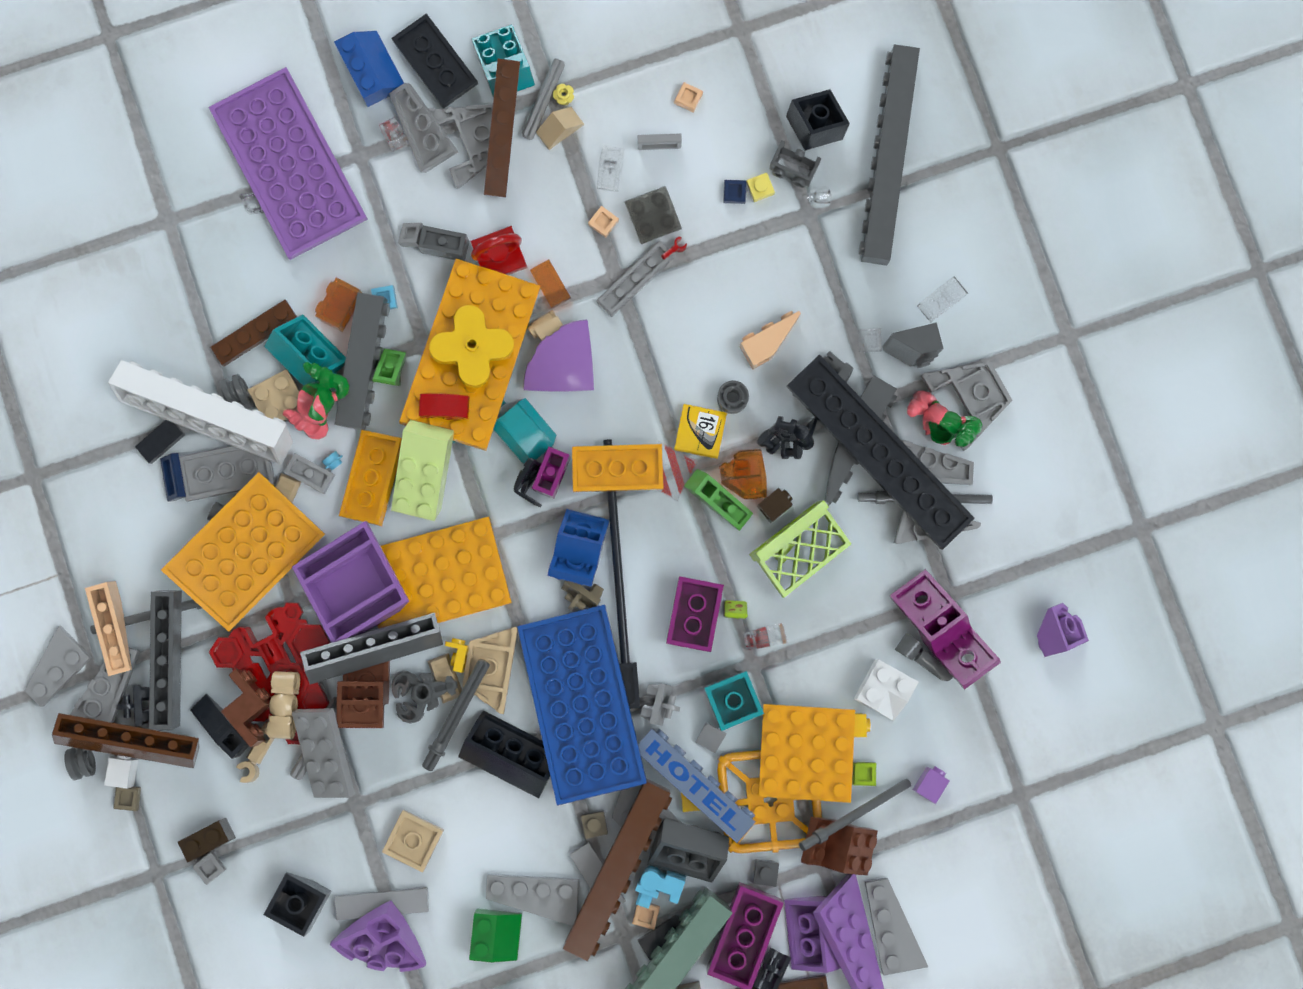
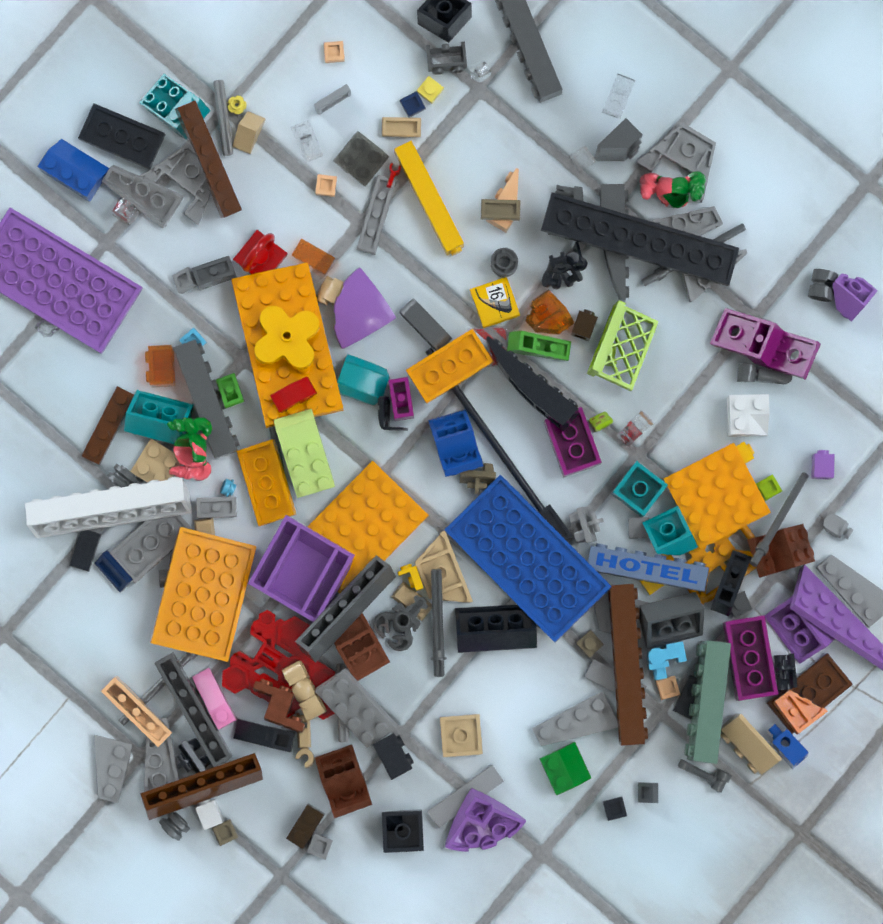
camera: 30 degrees left, 0 degrees up
(194, 661) = (214, 699): none -> bright pink slope
(268, 818) = (343, 781): none -> copper bracket
(334, 822) = (393, 755): none -> black brick
(619, 413) = (425, 325): none -> dark grey beam
(687, 539) = (534, 387): none -> black slope
(696, 292) = (429, 198): none -> yellow brick
(710, 207) = (401, 127): none -> tan tile
(737, 763) = (670, 533): none -> teal slope
(758, 343) = (500, 209): none -> dark tan tile
(769, 849) = (730, 583): none -> black slope
(910, 854) = (837, 526): none -> light grey arm
(1036, 604) = (822, 285): none -> dark grey wheel

